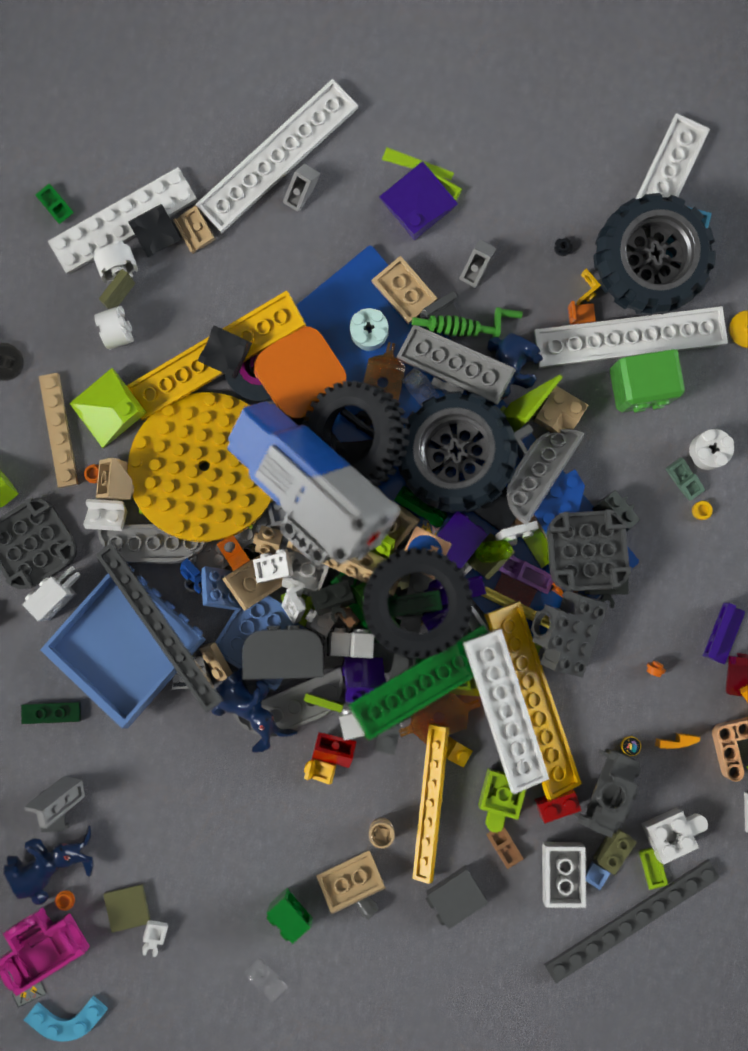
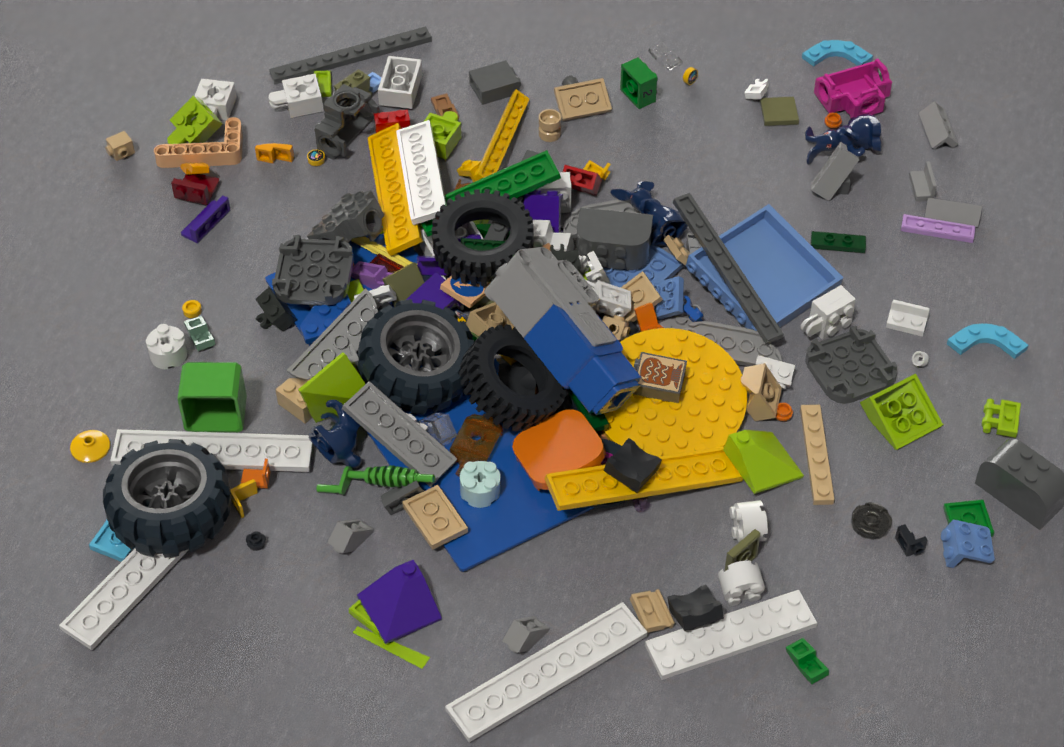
camera: 170 degrees left, 35 degrees down
(213, 471) = (660, 377): none -> brick
(233, 947) = (690, 75): none -> tile
(323, 702) = (574, 204): lime tile -> none
(494, 551) = (402, 284): clear neon green plate -> none
(655, 668) = (276, 201): orange plate -> none

